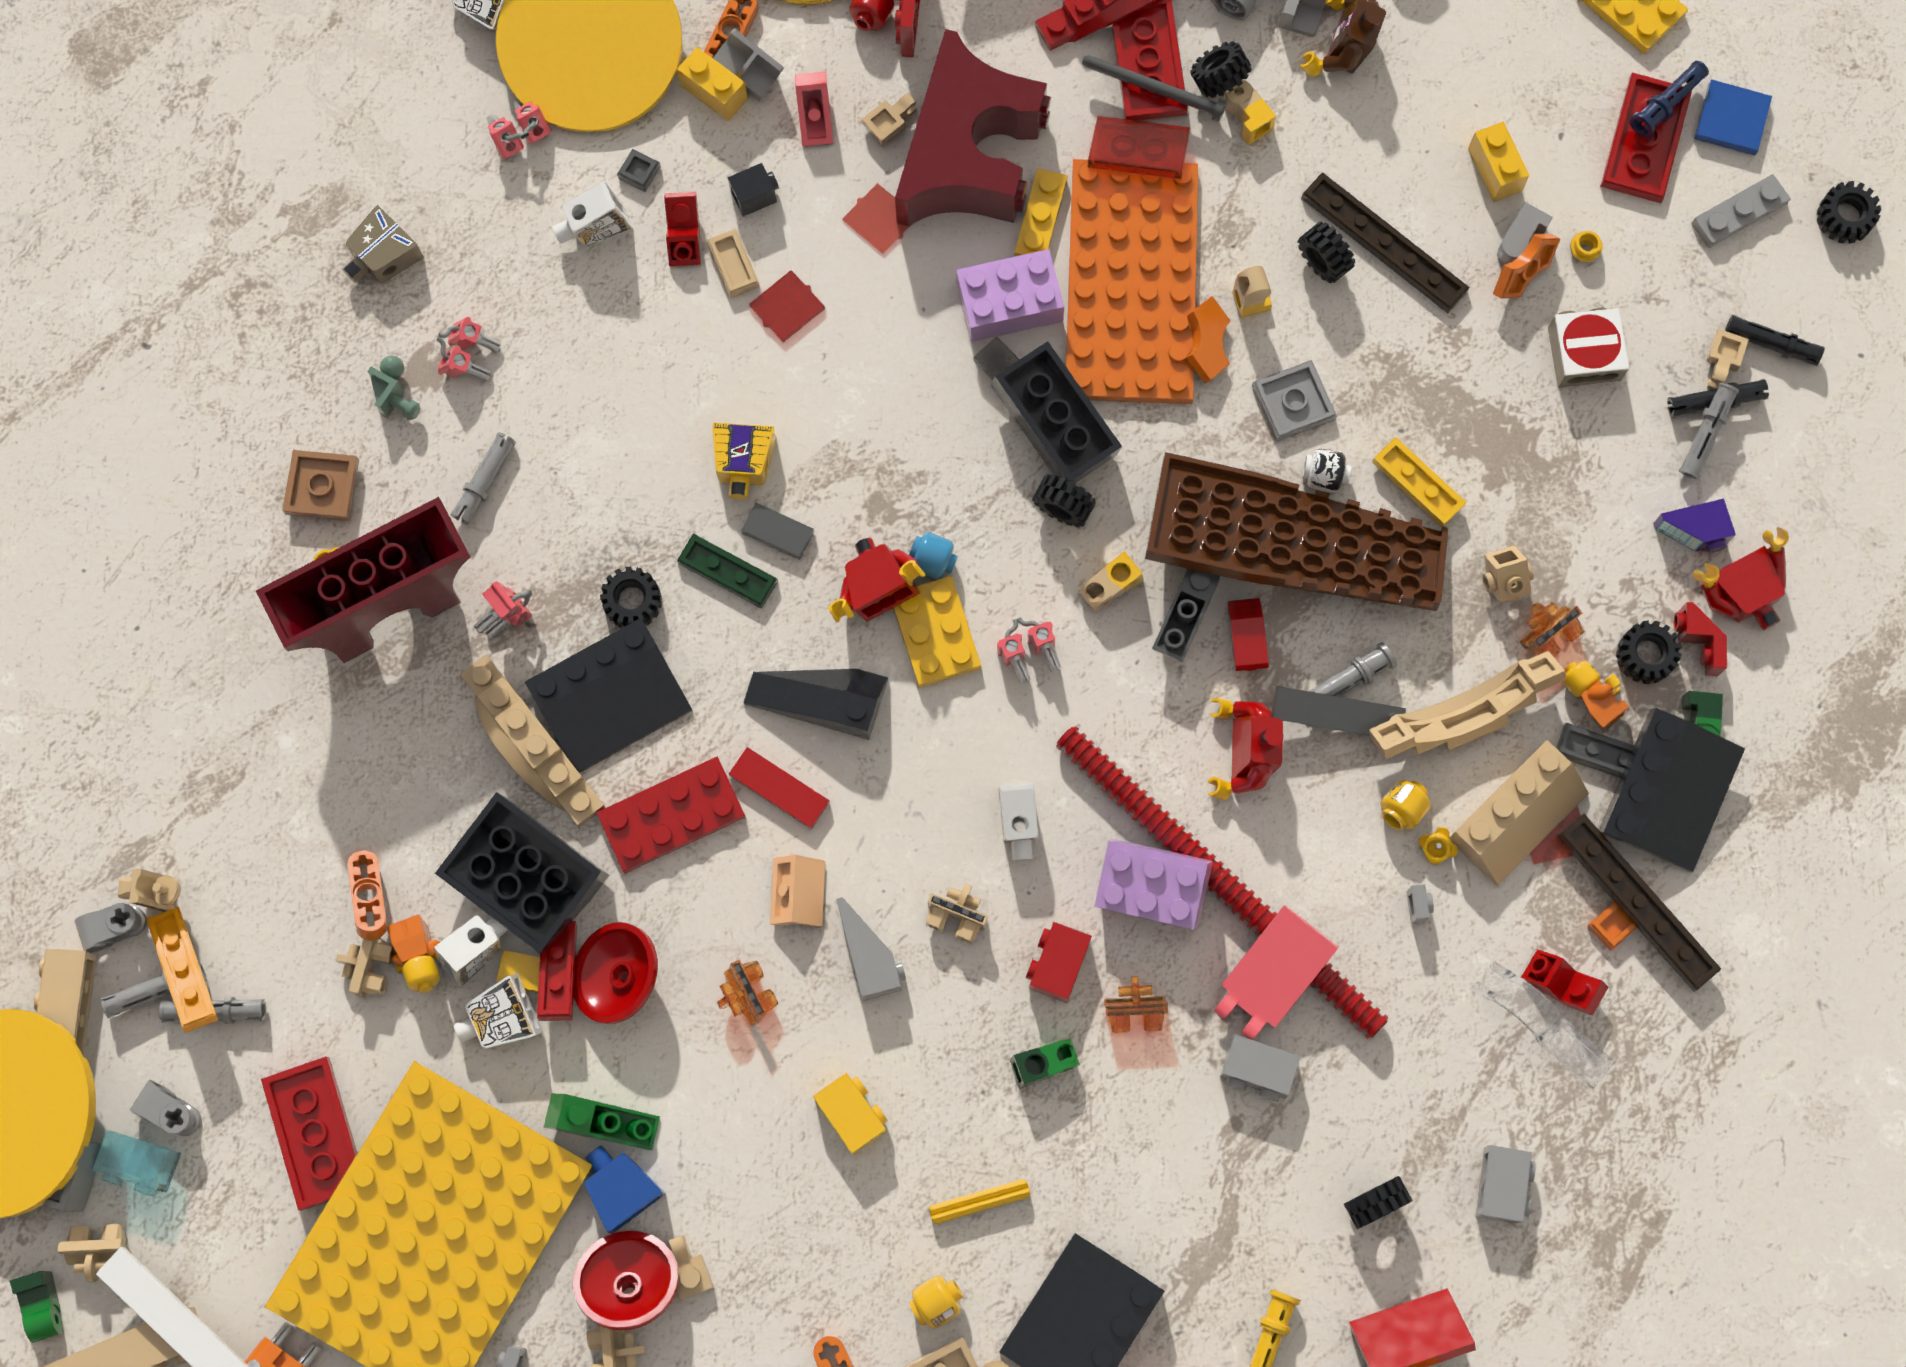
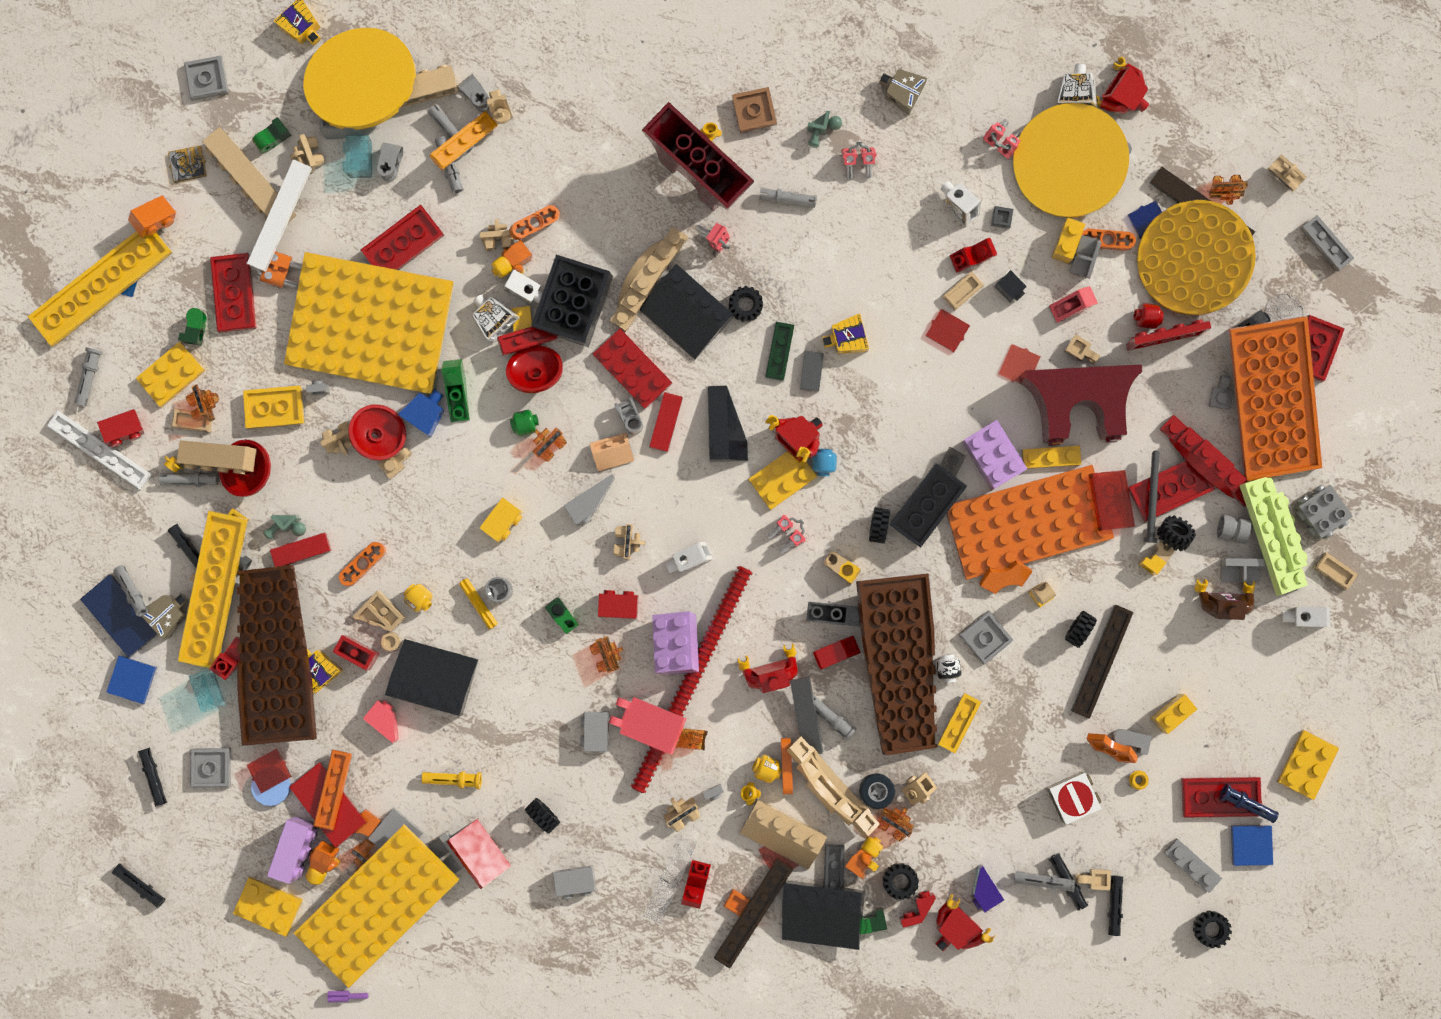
camera: 75 degrees right, 10 degrees up
(698, 1022) = (524, 422): none -> green head
(746, 842) = (628, 412): none -> light grey piece
(968, 1154) = (499, 589): none -> light grey wheel
(1323, 906) = (692, 739): none -> clear orange hips
(1408, 770) = (786, 767): none -> orange beam
(1436, 970) = (680, 810): none -> tan hips
(1497, 631) = (881, 796): none -> black wheel

